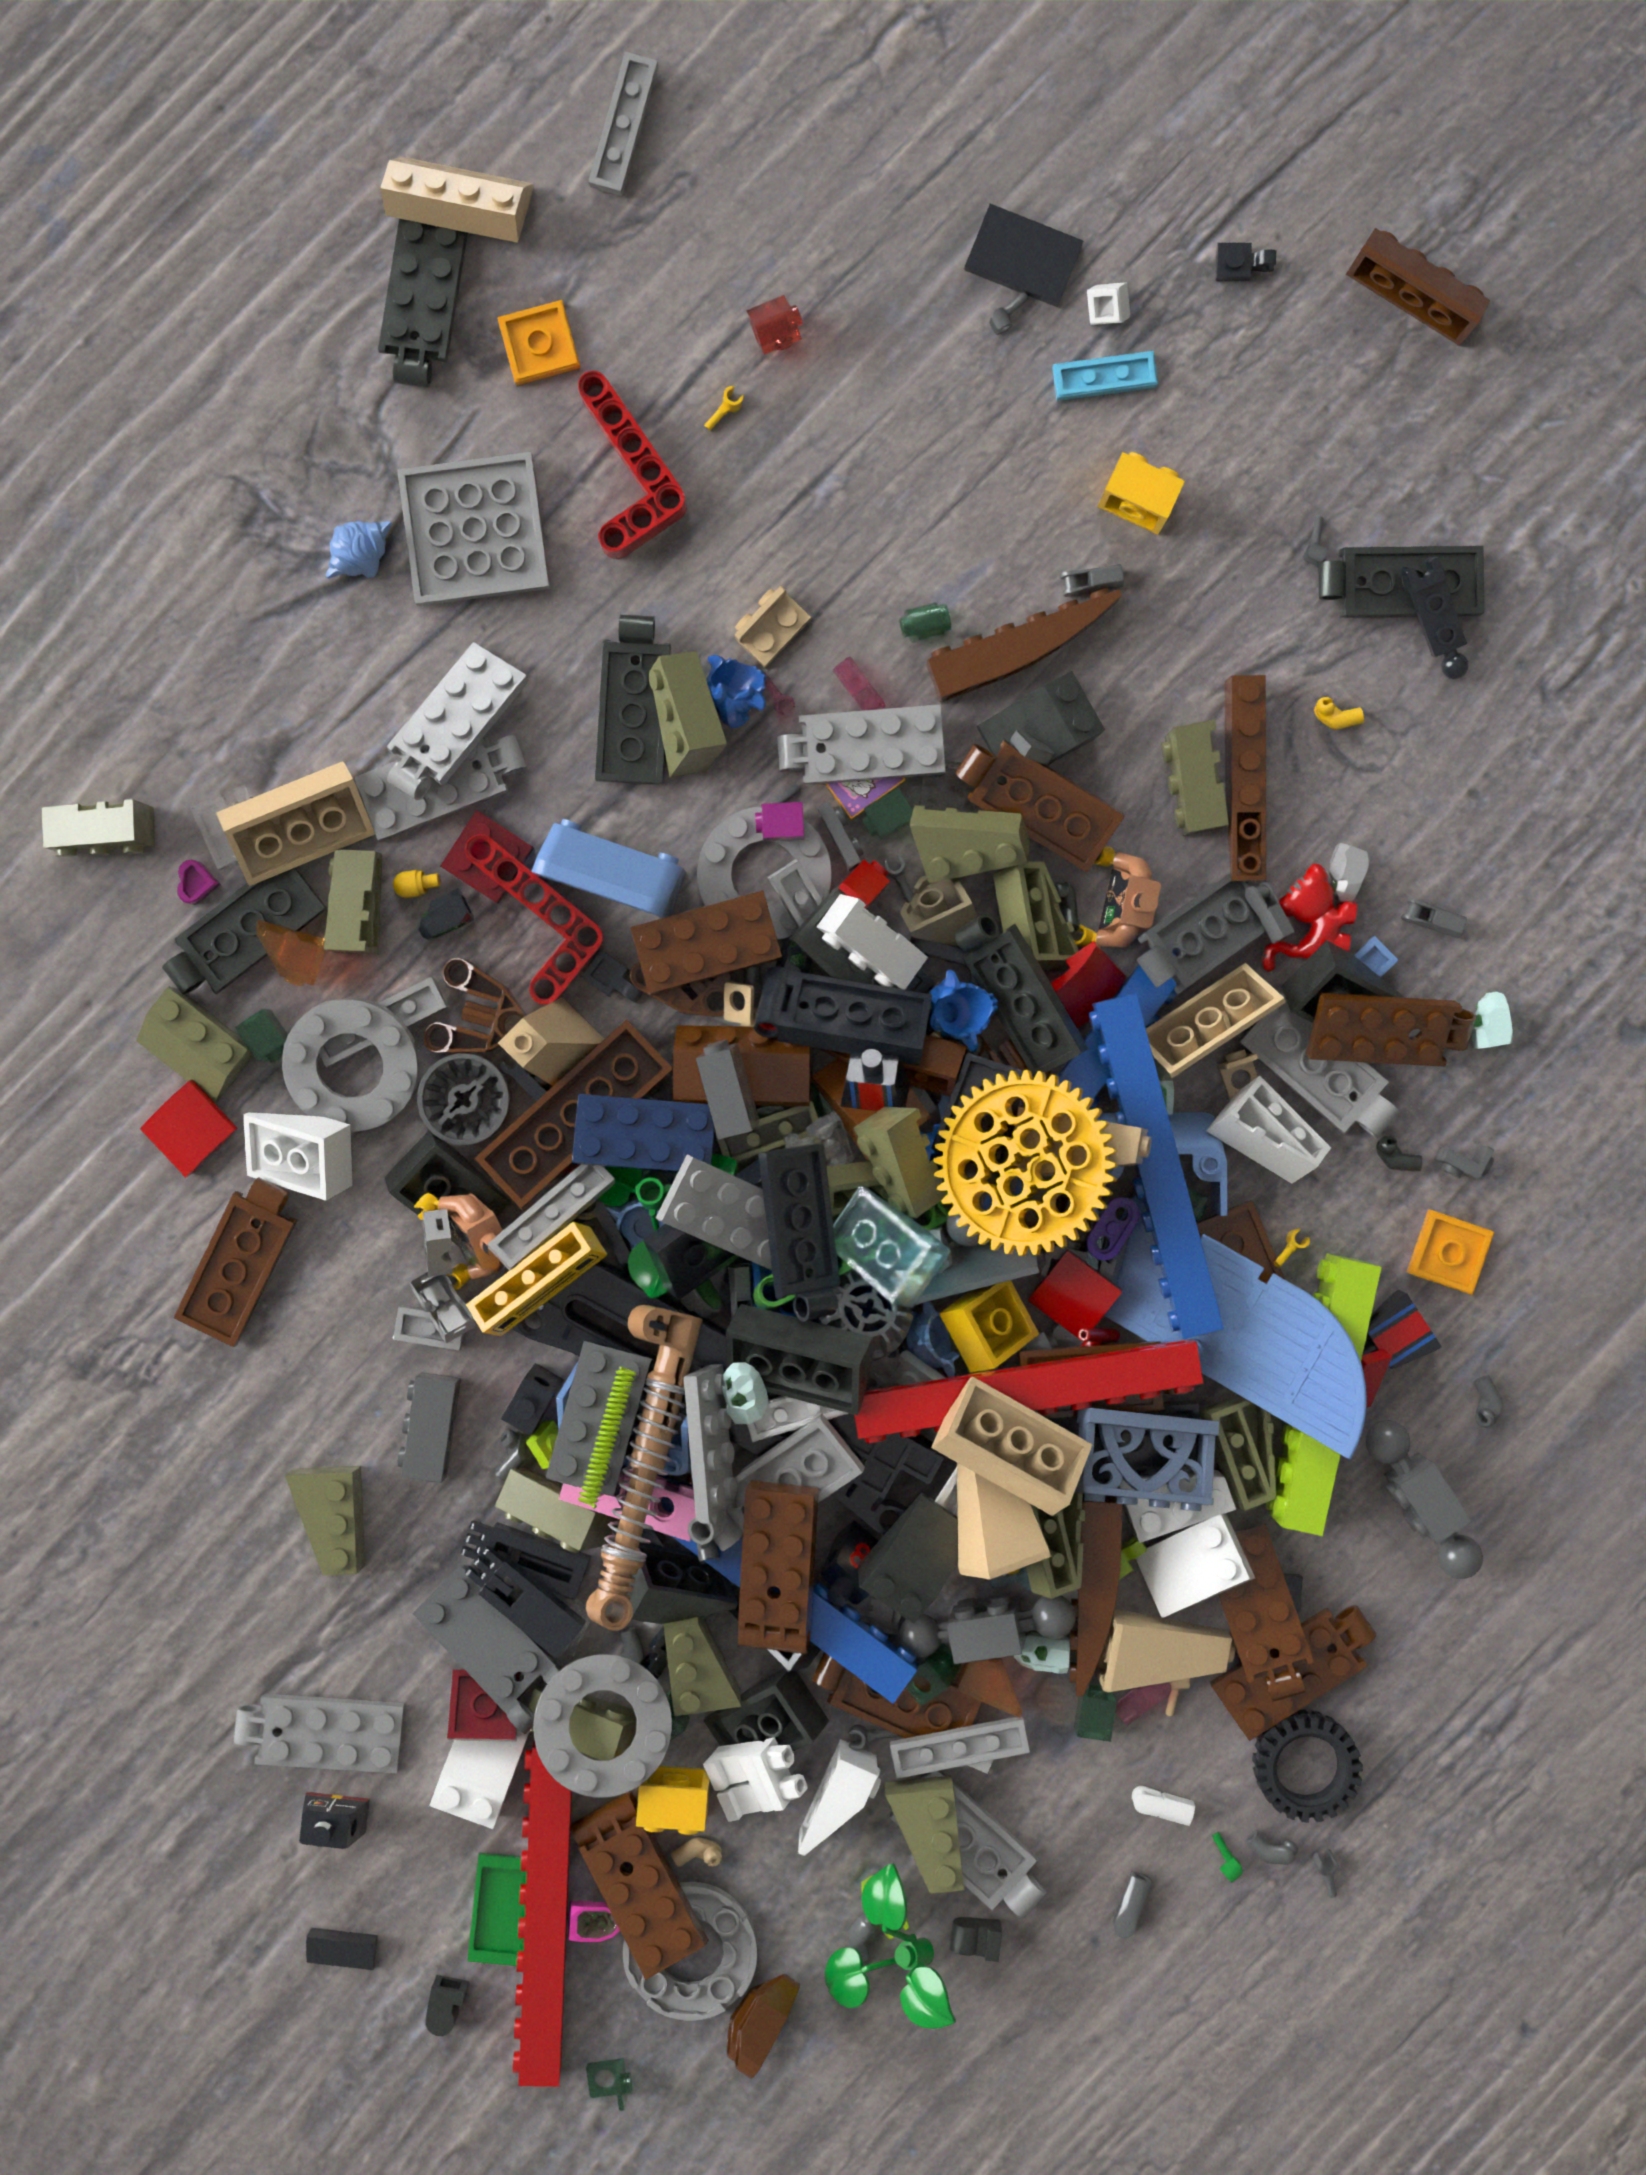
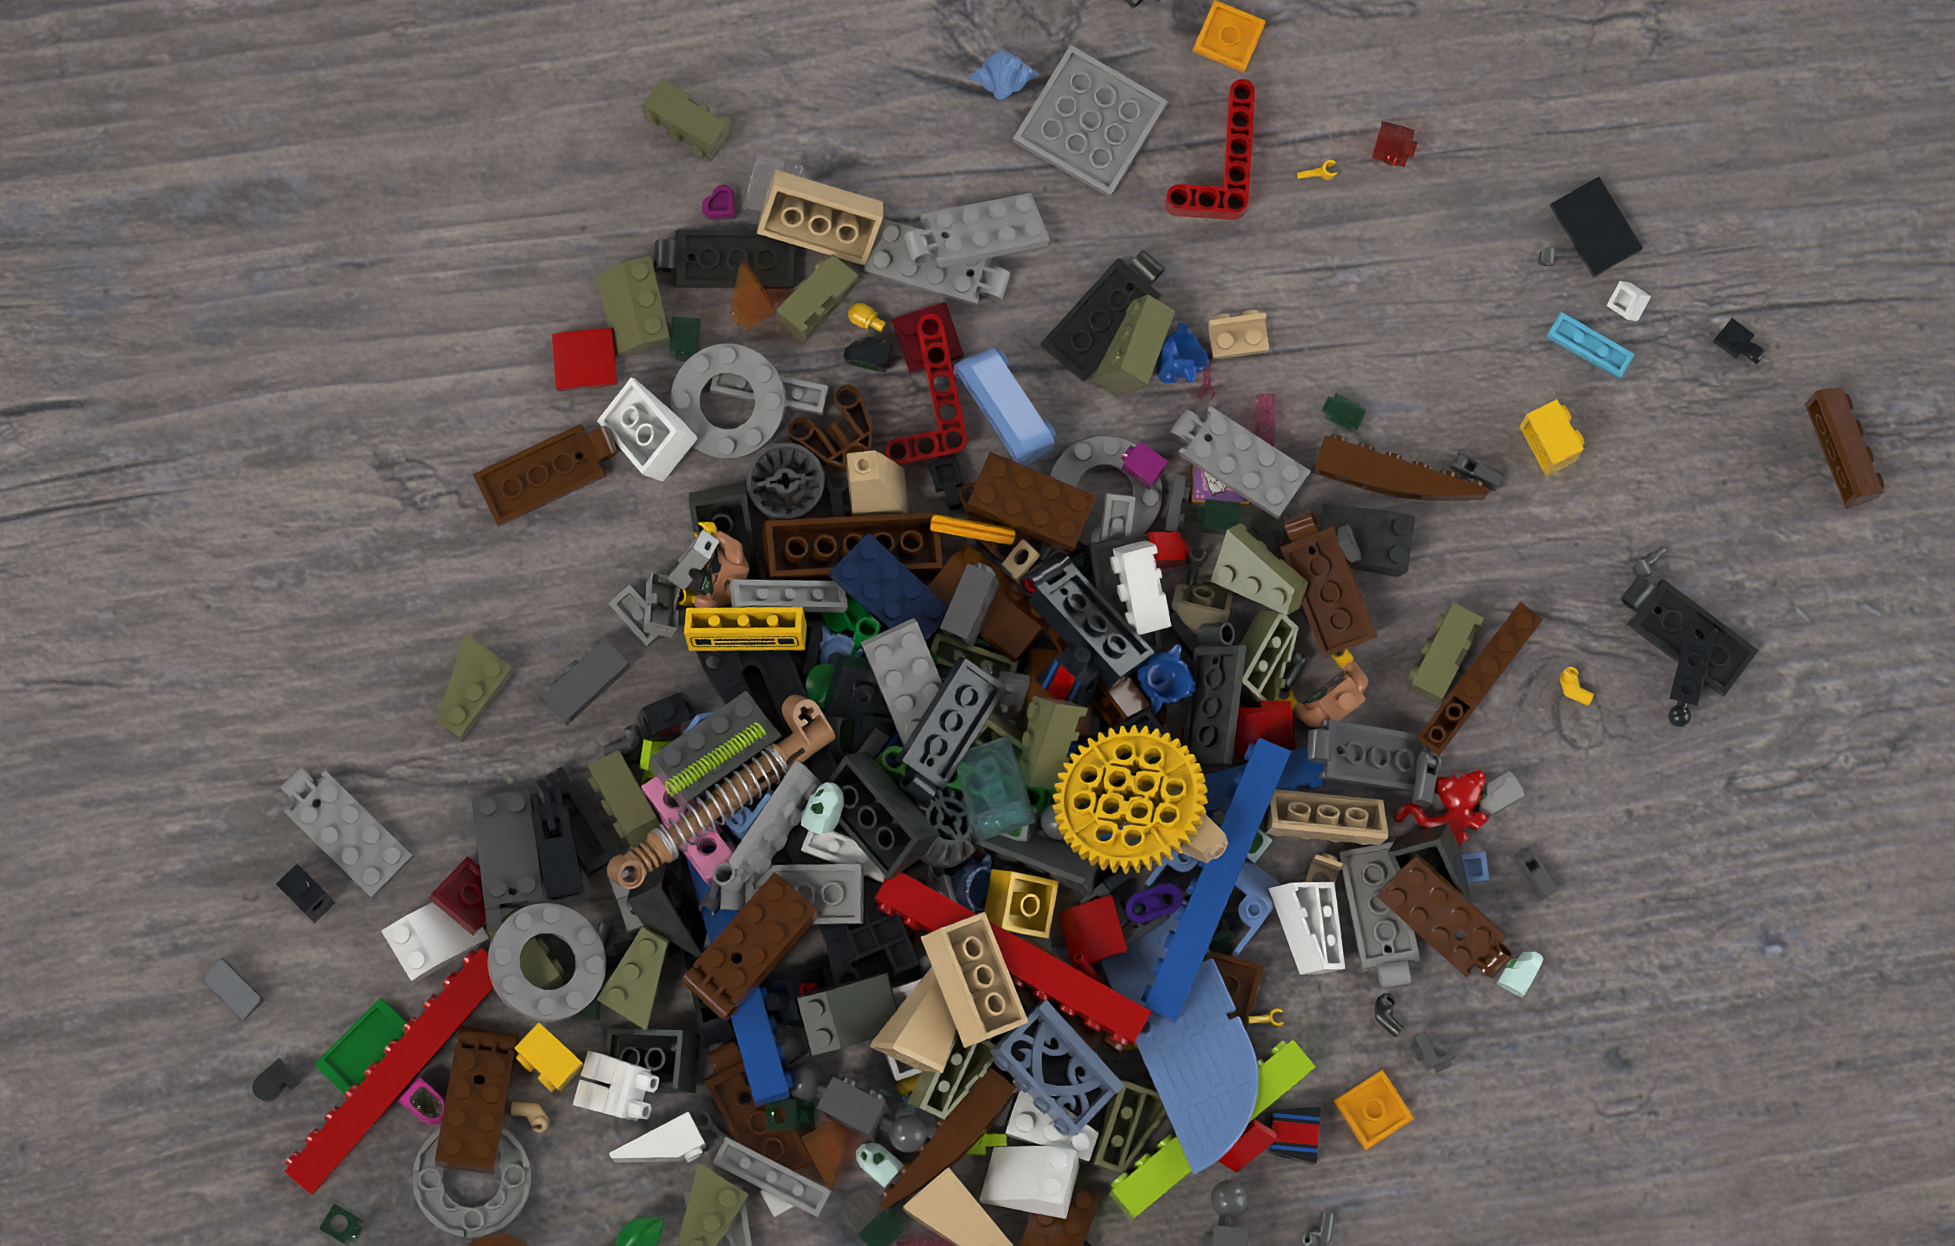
camera: 35 degrees right, 10 degrees down
(672, 1010) = (972, 529): none -> light orange axle

